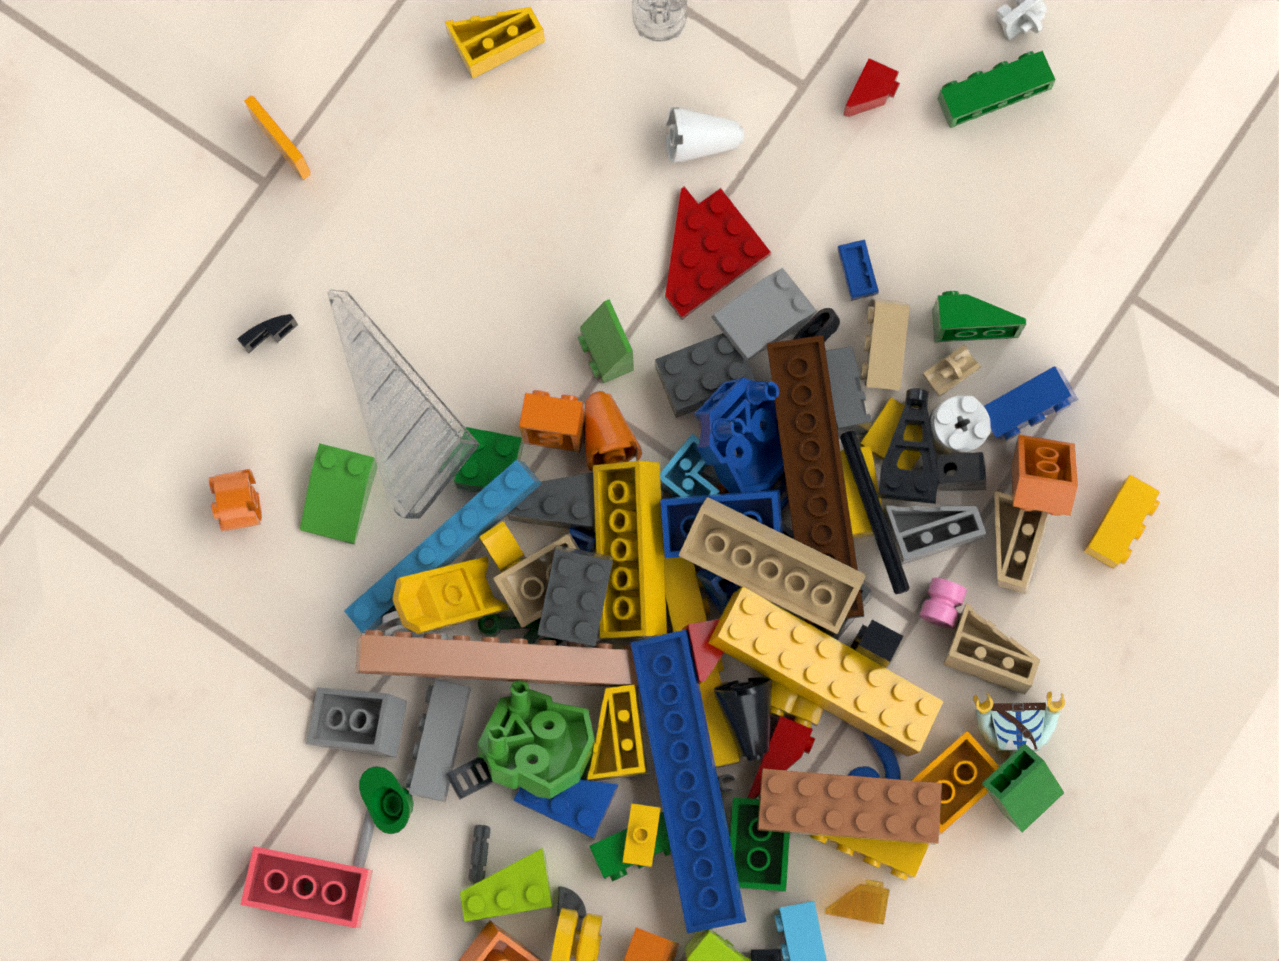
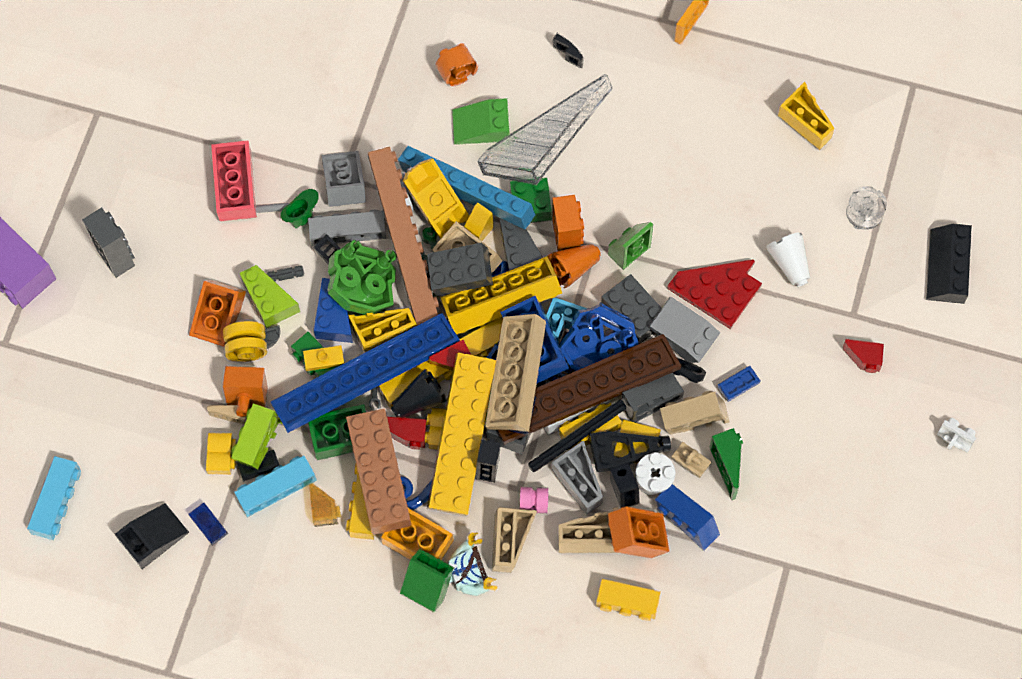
camera: 70 degrees right, 10 degrees down
(996, 88) = (897, 433): green brick -> none

